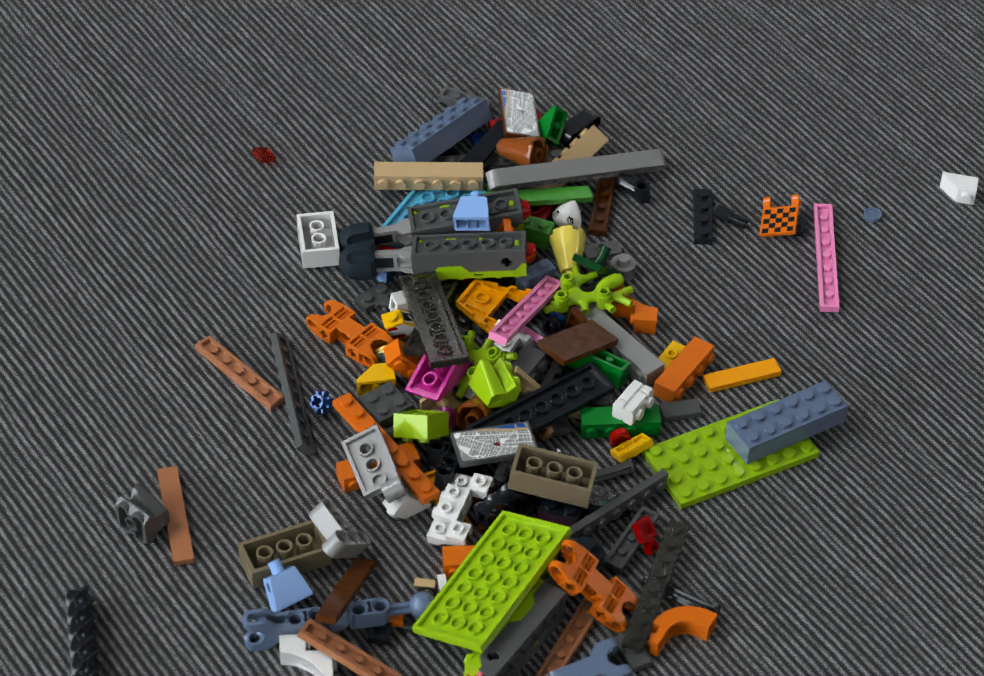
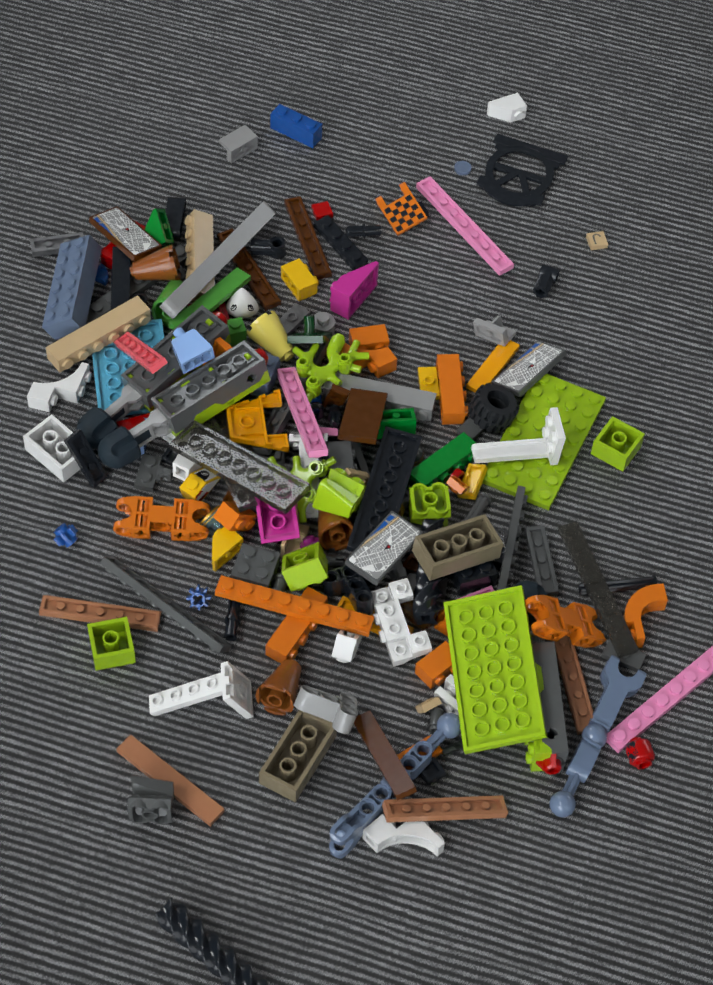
camera: 40 degrees left, 10 degrees up
(222, 394) = (111, 643): none -> lime brick
(265, 302) = (65, 535): none -> blue gear
(274, 470) = (229, 683): none -> white bracket
(284, 586) = (327, 784): light blue torso -> none
(310, 495) = (280, 688): none -> dark orange cone
(329, 255) = (86, 458): none -> black tile
(332, 434) = (232, 620): none -> black pin
(371, 205) = (45, 395): none -> white arch
(384, 476) = (322, 633): light grey hinge -> none
(436, 198) = (140, 352): none -> coral tile
(574, 438) = (429, 503): none -> lime piece
(610, 439) = (457, 485): none -> orange plate
(633, 402) = (449, 442): white brick -> none
(636, 224) = (299, 279): none -> yellow brick
(645, 533) = (551, 548): red plate -> none
(652, 296) = (370, 337): none -> orange brick
(673, 252) = (353, 289): none -> dark pink slope
(677, 199) = (307, 238): none -> reddish brown tile
(687, 100) = (239, 143): none -> light grey panel
(703, 401) = (493, 407): none -> black tyre
(709, 451) = (547, 447): none -> white bracket
(711, 183) = (321, 210): none -> red tile
(750, 110) = (296, 126): none -> blue brick
(765, 391) = (530, 367): none -> tile
(768, 347) = (493, 330): none -> light grey panel
(786, 422) = (571, 383): sand blue brick -> none
(789, 489) = (617, 443): none -> lime brick
(859, 333) = (547, 277): none -> black piece
(930, 215) = (493, 187): none -> black window
(940, 330) = (597, 240): none -> tan tile

